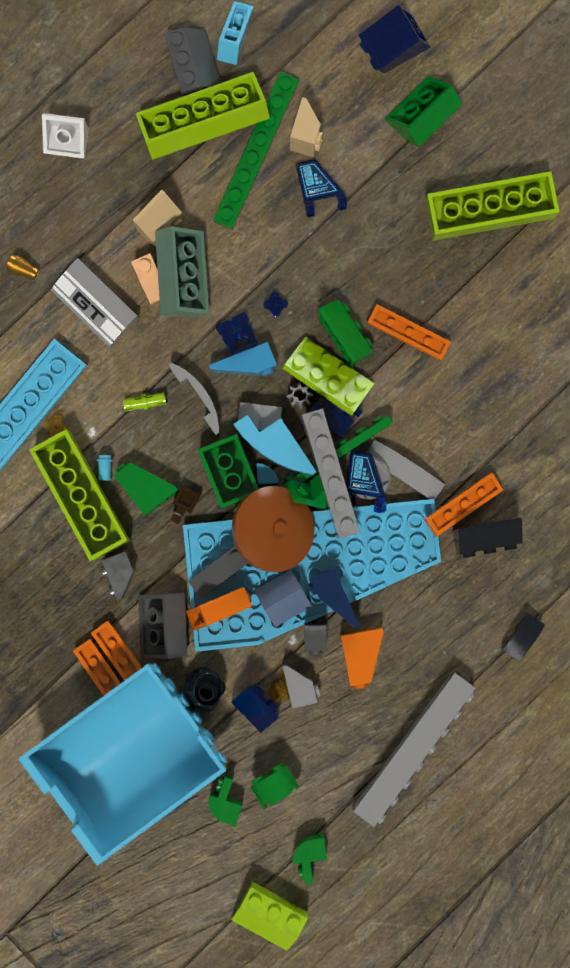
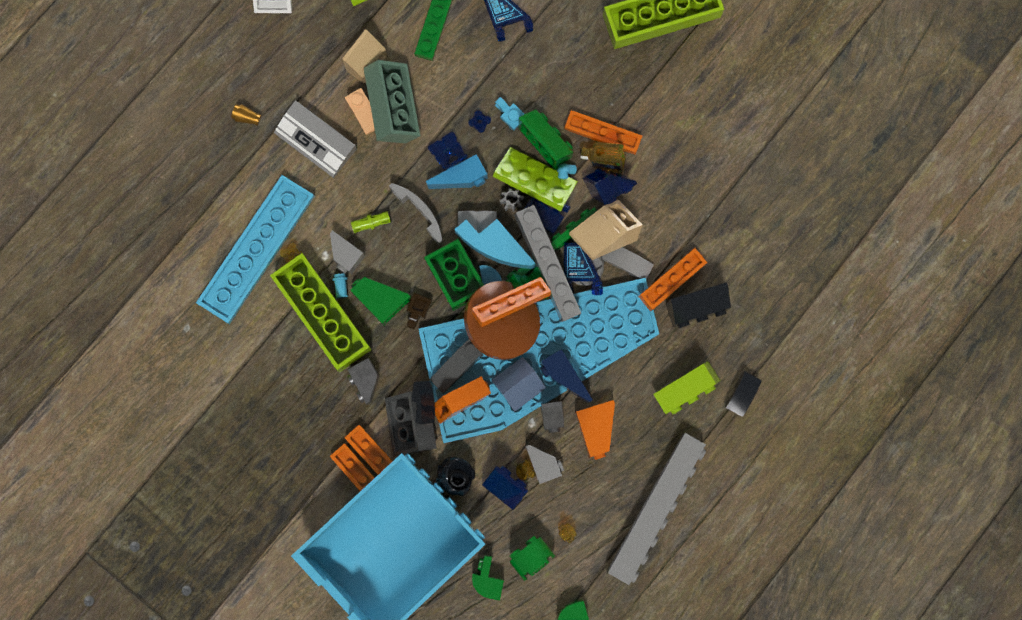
camera: 10 degrees left, 5 degrees down
(112, 434) = (345, 254): none -> light grey slope
(180, 606) = (424, 398): none -> black slope
(285, 512) = (511, 302): none -> orange plate
(311, 300) = (510, 114): none -> medium azure plate
(315, 762) = (567, 532): none -> clear yellow plate
(361, 369) = (565, 169): none -> medium azure arm
(398, 443) = (607, 230): none -> tan slope
(407, 392) = (607, 185): none -> clear blue slope
(415, 364) = (606, 156): none -> clear yellow torso
(464, 625) = (687, 388): none -> lime wedge

